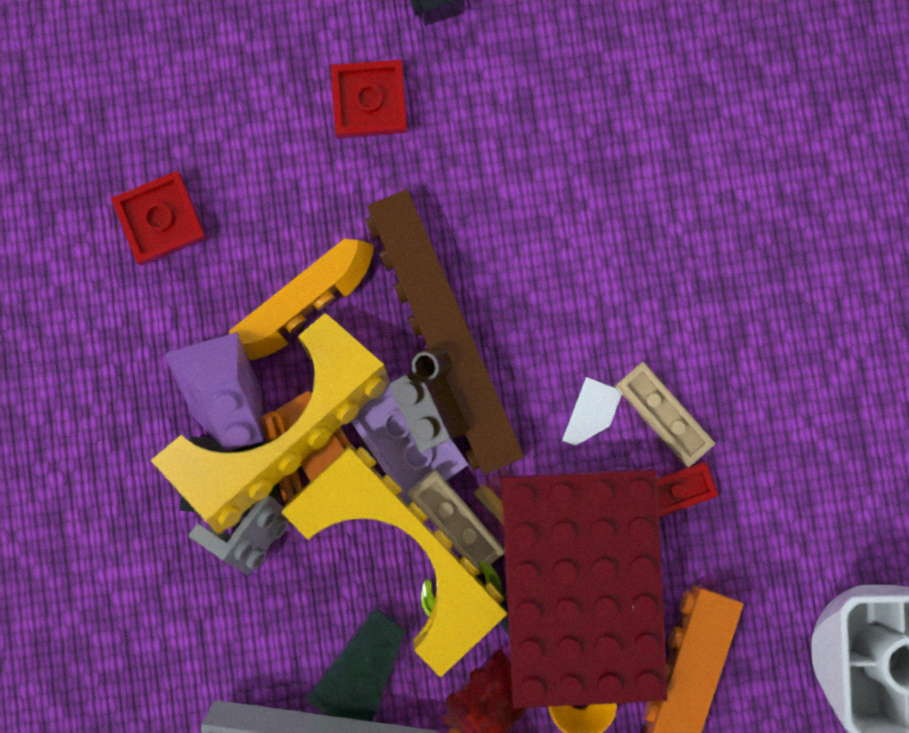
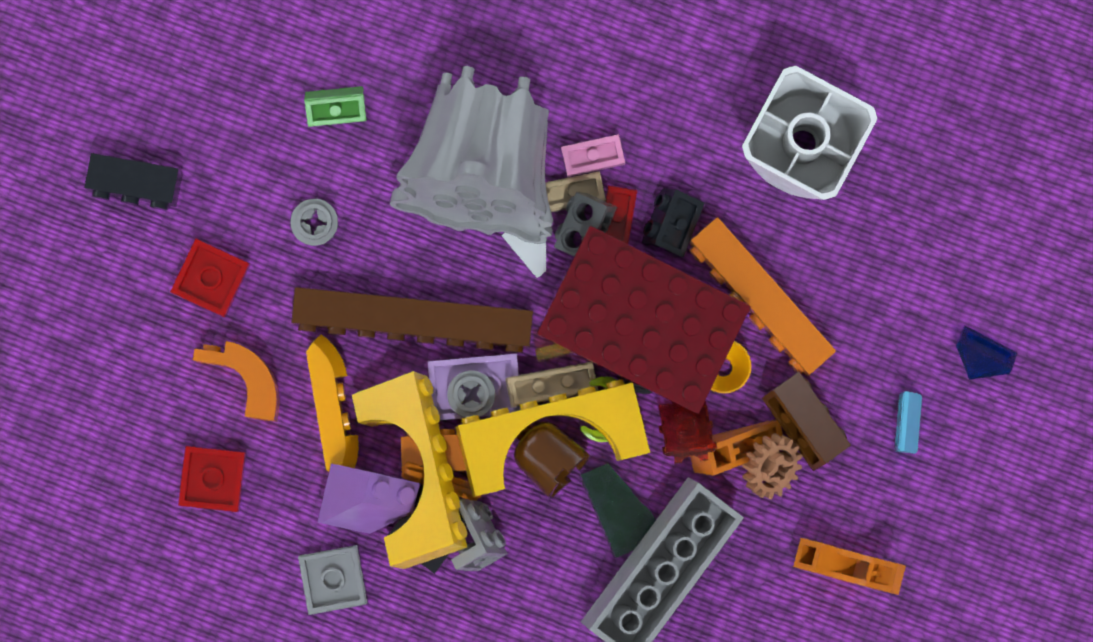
camera: 60 degrees left, 0 degrees up
(122, 404) = (333, 579): none -> light grey tile
(294, 201) = (261, 385): none -> orange arch
(374, 564) = (548, 456): none -> reddish brown cylinder
(381, 451) = (457, 395): none -> light grey gear
(429, 401) = (456, 355): dark brown hinge -> none
(494, 158) = (305, 211): none -> light grey gear
(622, 127) = (335, 106): none -> bright green slope
(648, 450) = (577, 222): none -> dark grey brick
(658, 306) = (480, 162): none -> light grey piece
(707, 554) = (672, 221): none -> black bracket
(728, 427) = (593, 155): none -> bright pink plate

